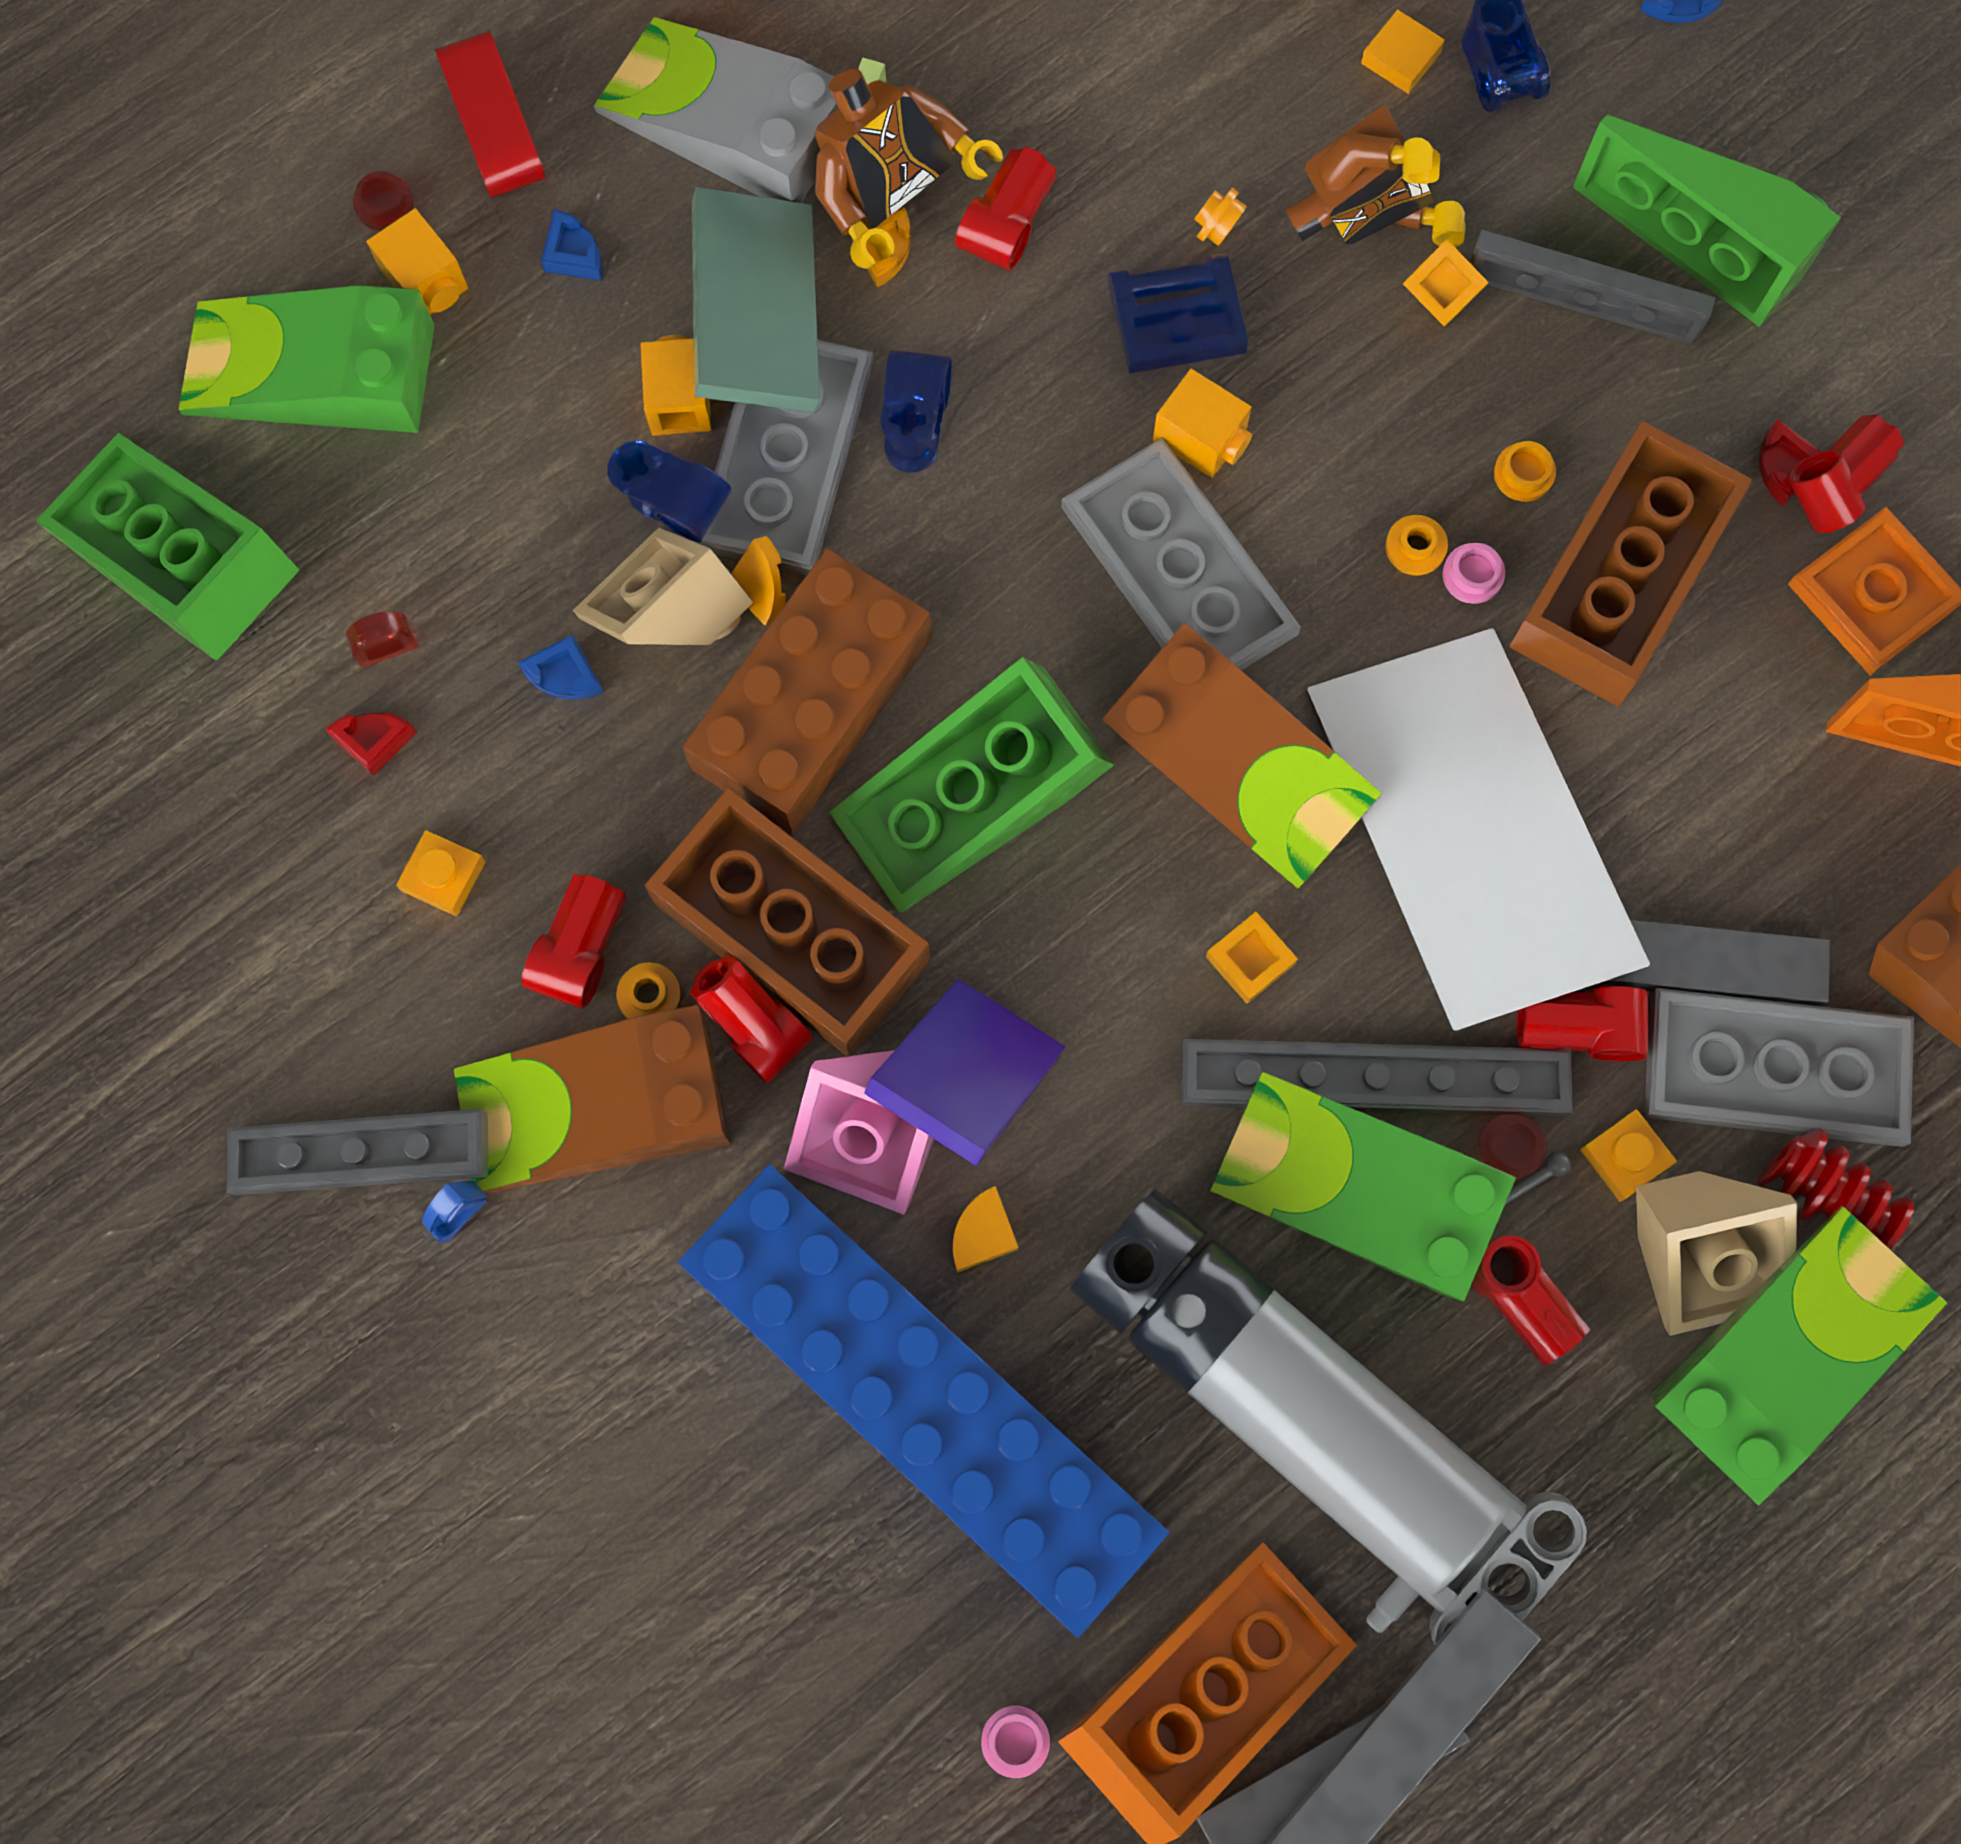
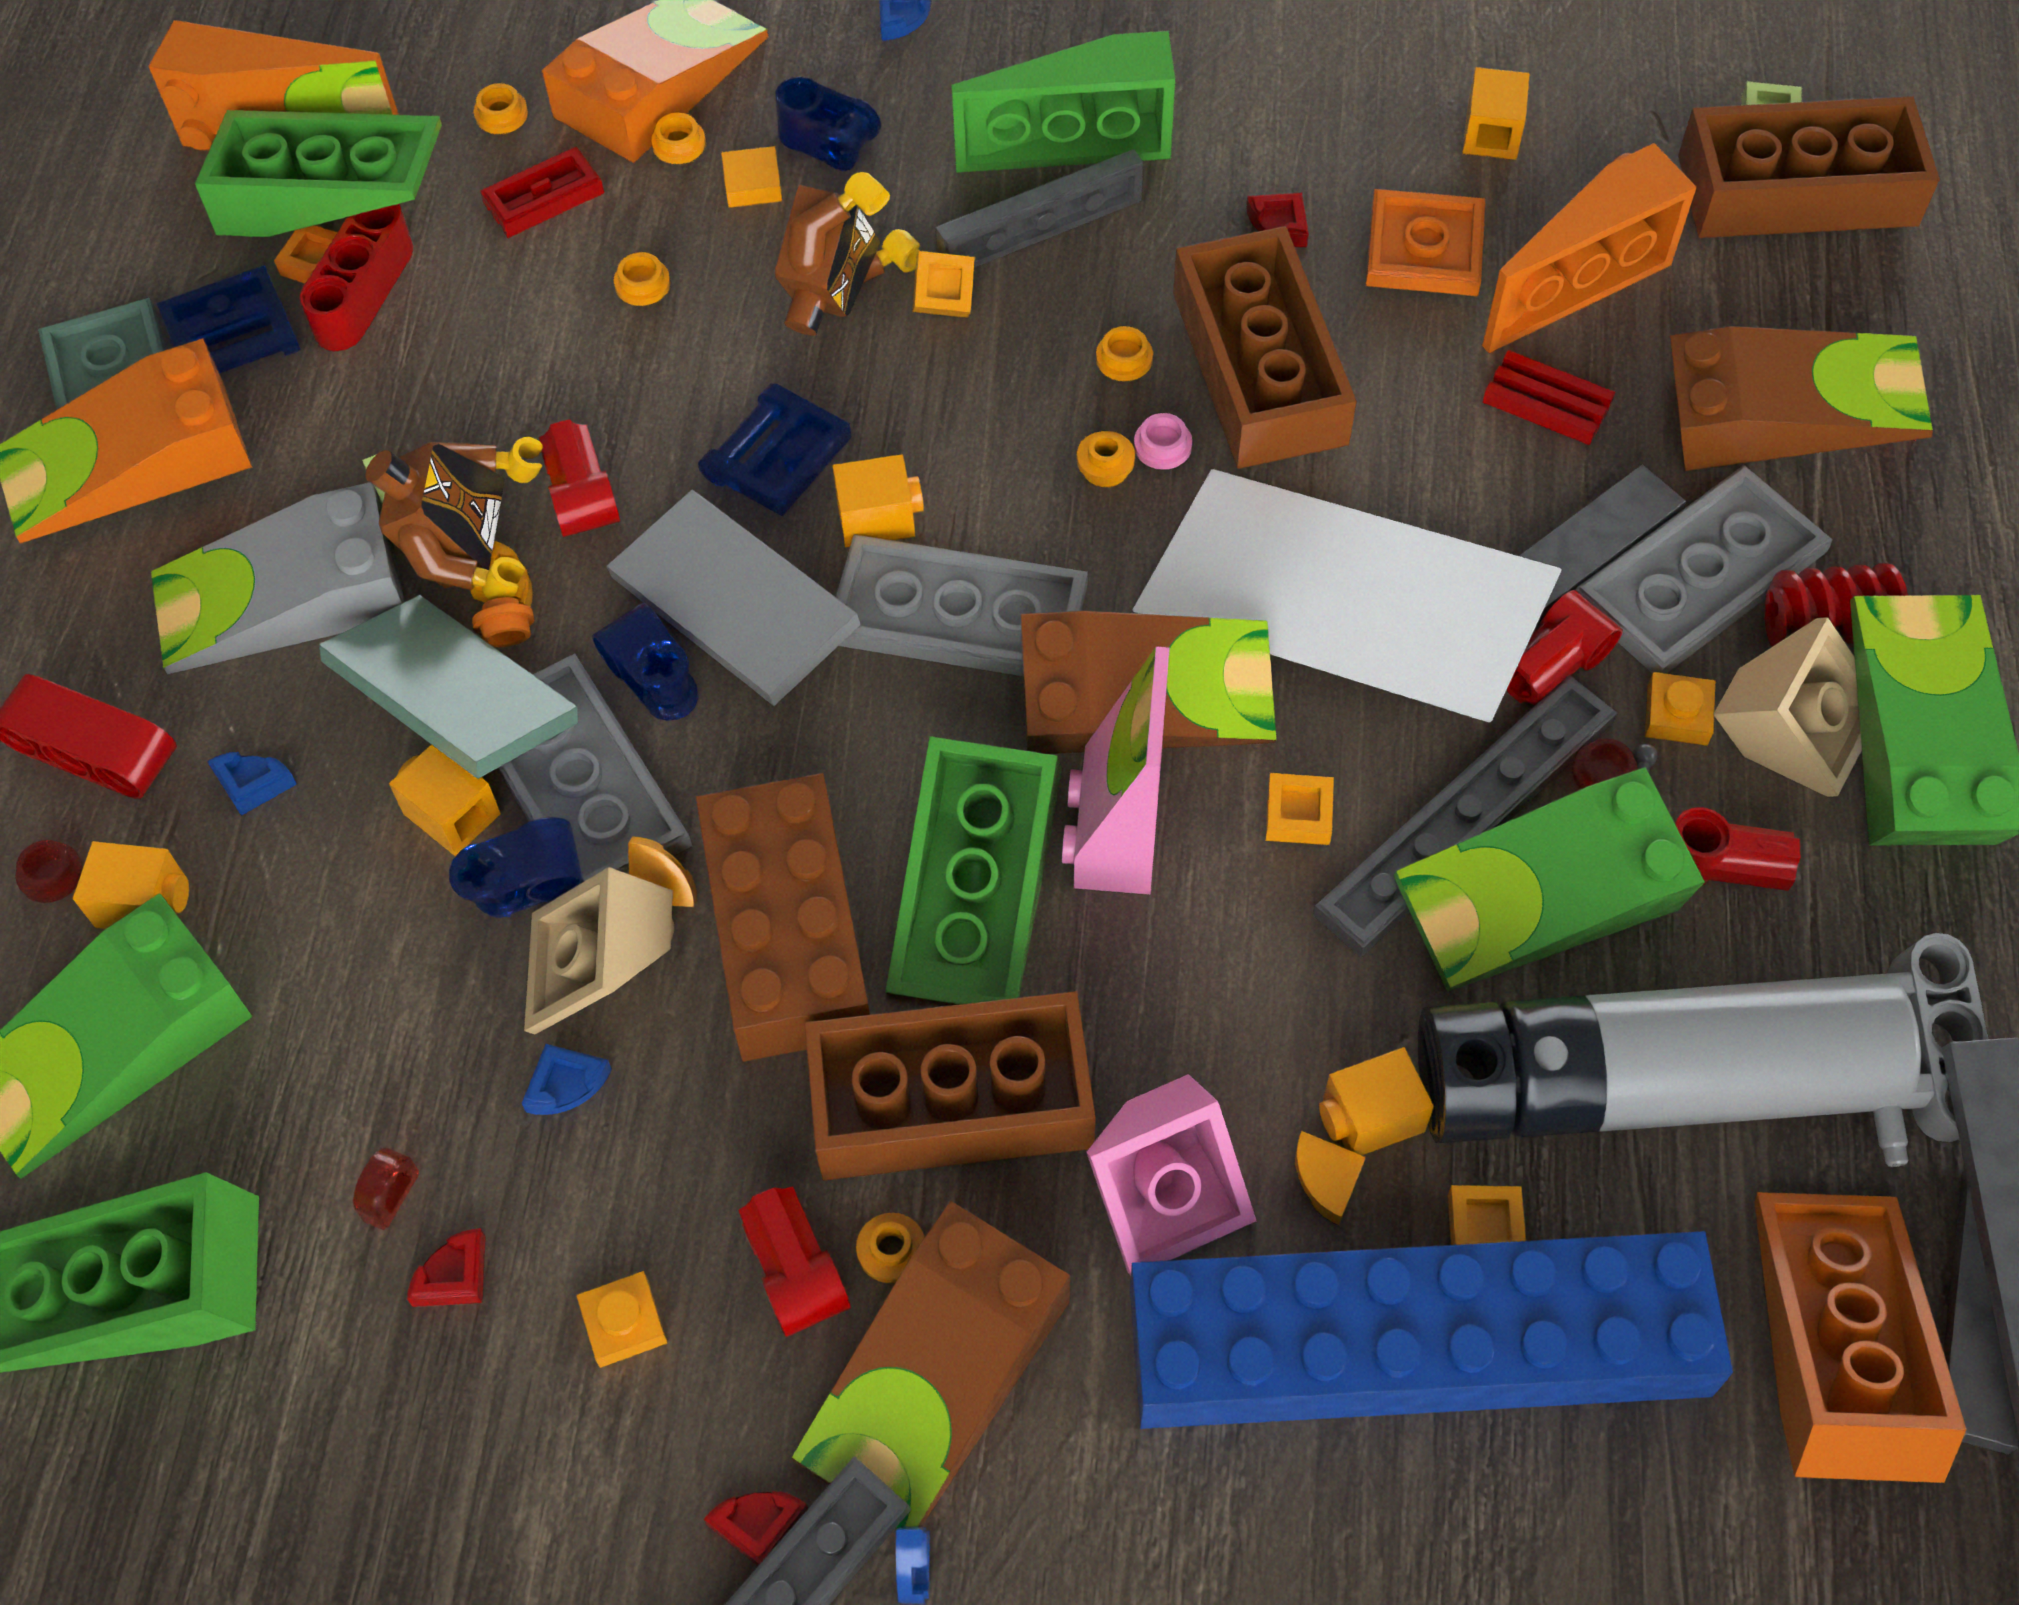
camera: 45 degrees left, 15 degrees down
(393, 1088) = (756, 1521): none -> red tile
(759, 1028) = (1007, 1181): red piece -> none
(846, 281) = (503, 622): none -> orange plate
(965, 1071) = (1201, 1060): dark purple tile -> none
(1015, 1741) = (1765, 1514): bright pink plate -> none
(1023, 409) = (734, 596): none -> light grey tile
(1048, 1373) = (1485, 1214): none -> light orange plate
(1061, 1217) = (1376, 1103): none -> light orange brick
(1120, 831) = (1120, 789): none -> bright pink slope
(1219, 216) = (739, 365): light orange plate -> none
(1224, 74) = (641, 279): none -> light orange plate
(1834, 479) = (1326, 191): red piece -> none
(1847, 808) = (1552, 390): none -> red tile

